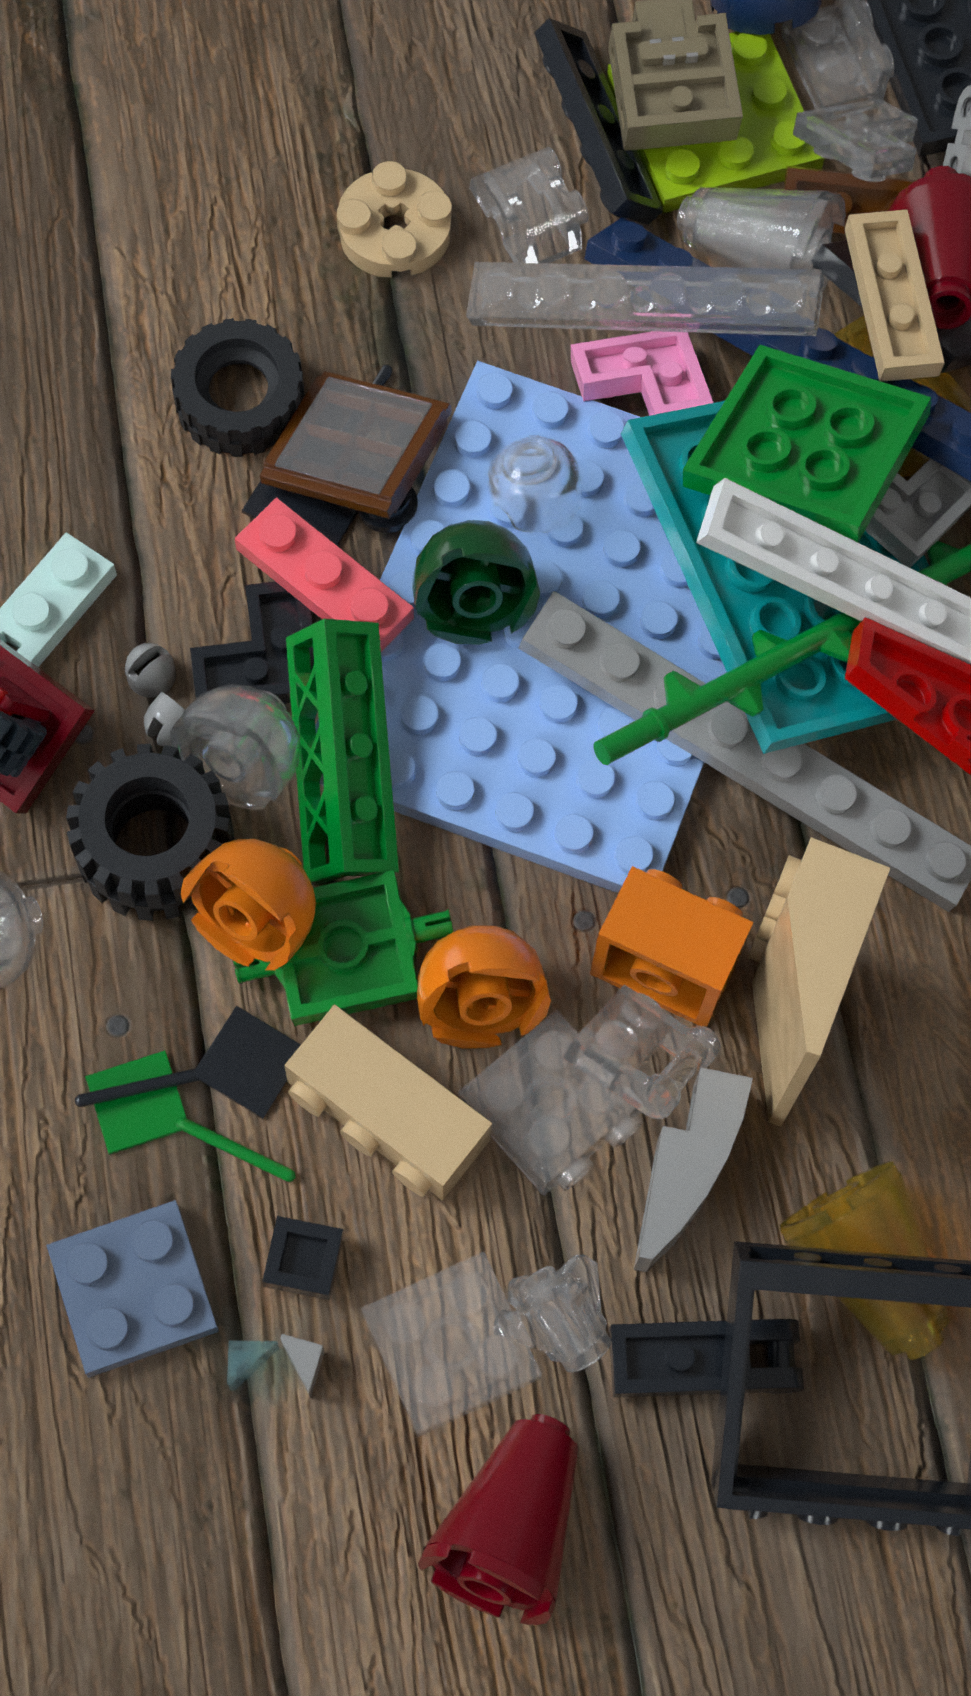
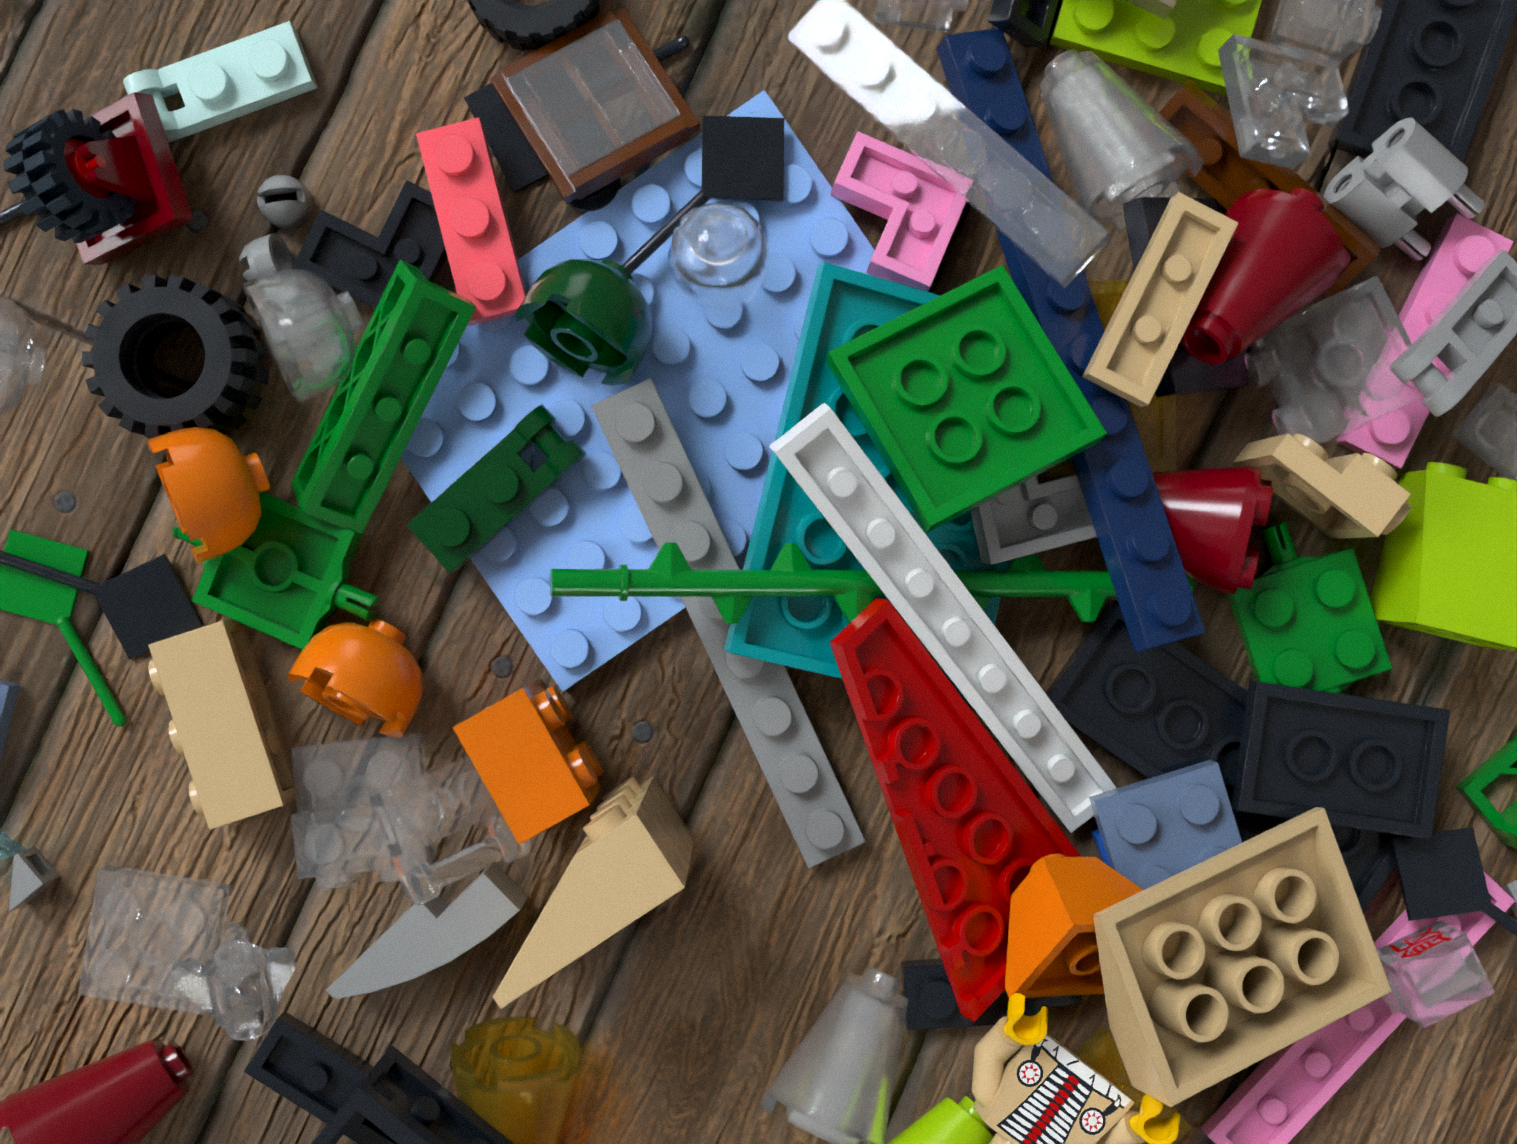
camera: 40 degrees right, 20 degrees up
(303, 1258) = (79, 800): black plate -> none
(486, 766) = (495, 491): none -> dark green plate
(497, 414) = (738, 163): none -> black piece

